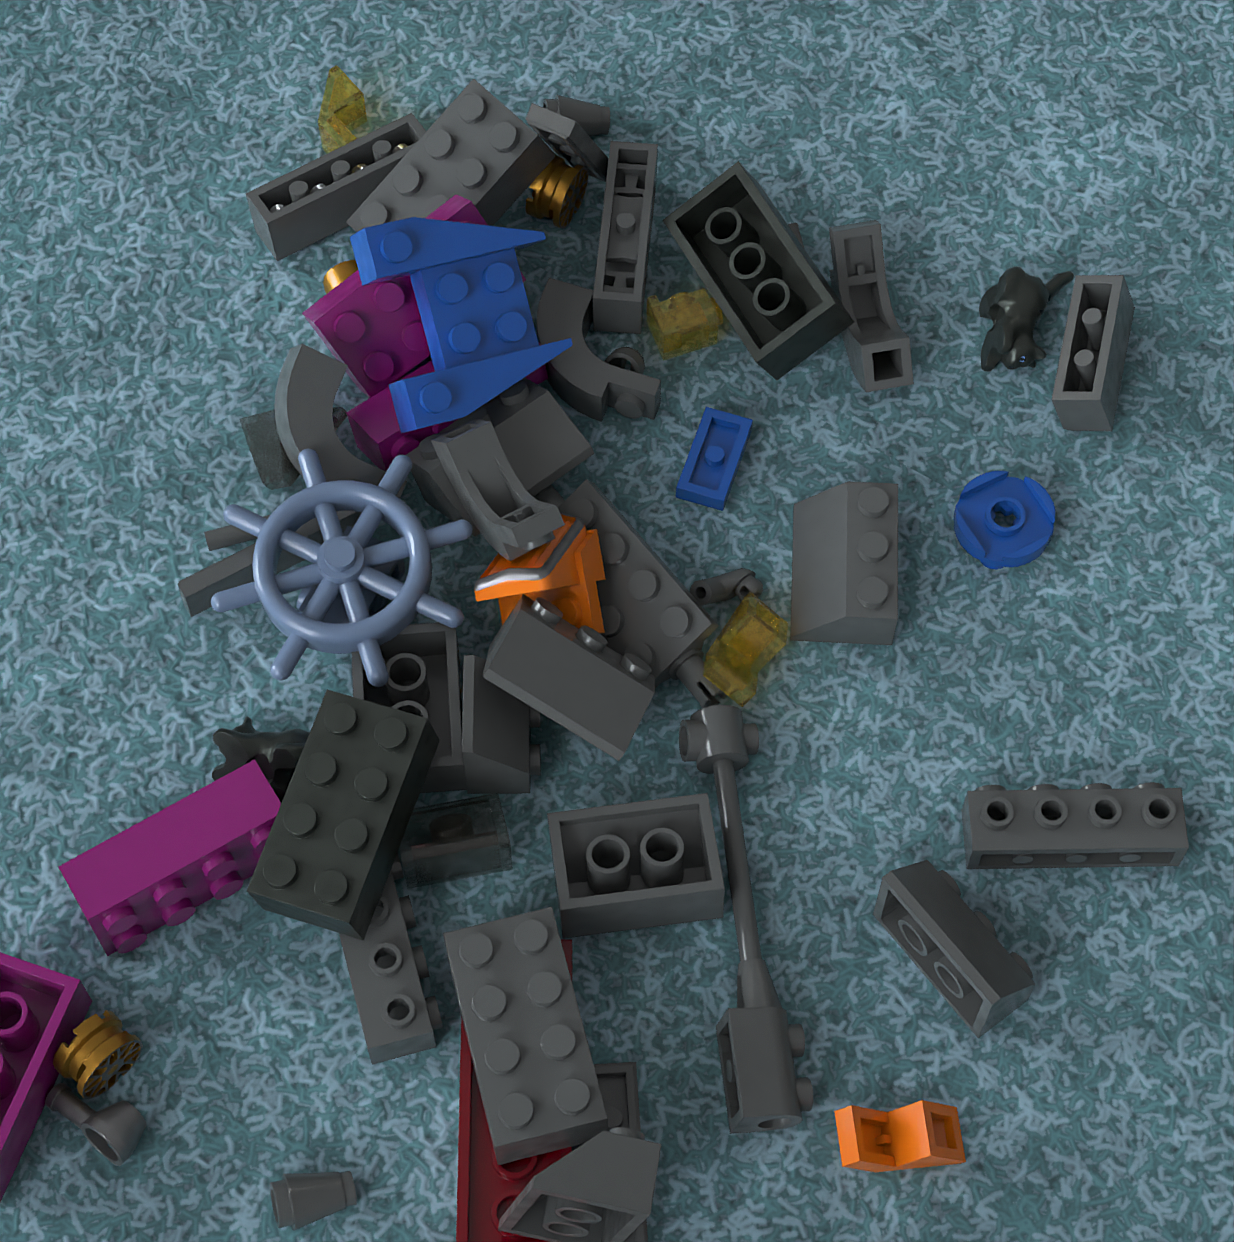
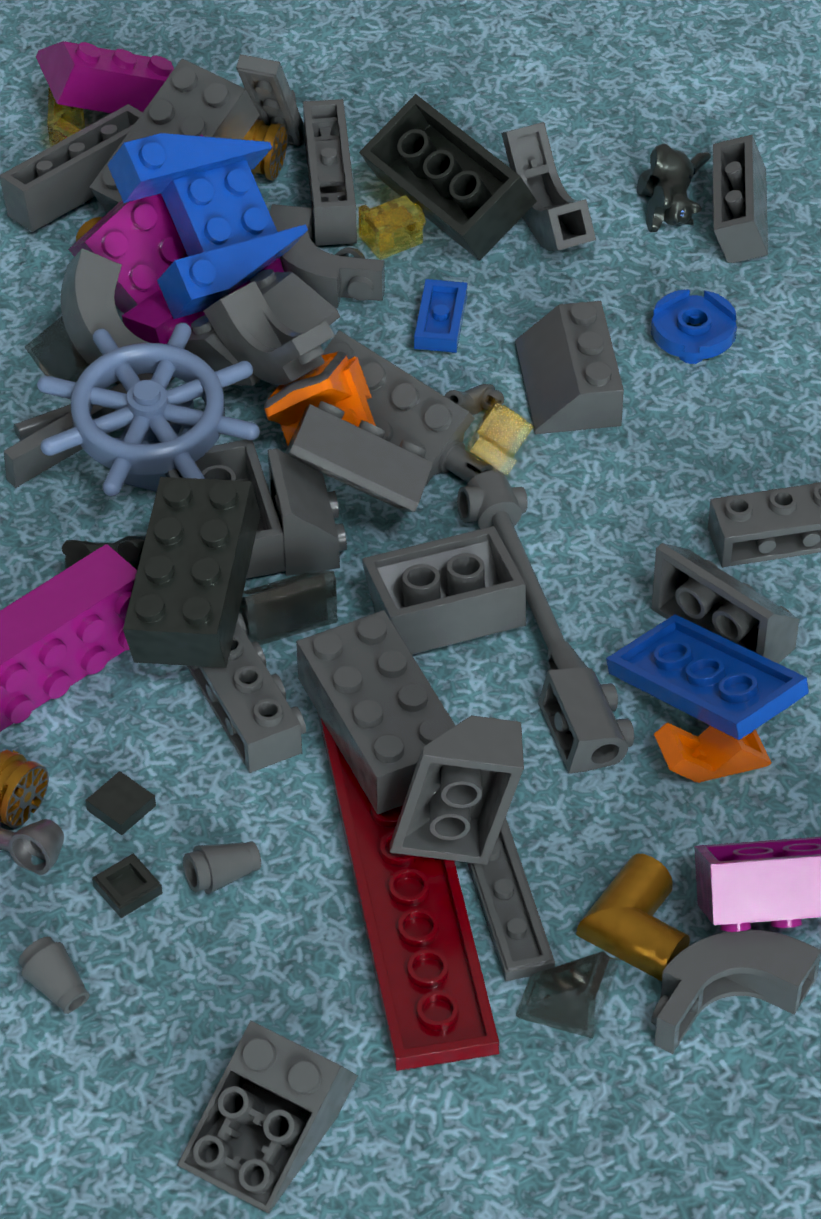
camera: 10 degrees left, 15 degrees down
(204, 1200) = (127, 885): none -> pearl dark grey tile
(219, 1084) = (120, 803): none -> pearl dark grey tile
(394, 70) = (101, 77): none -> magenta slope
(912, 1047) = (707, 676): none -> blue plate

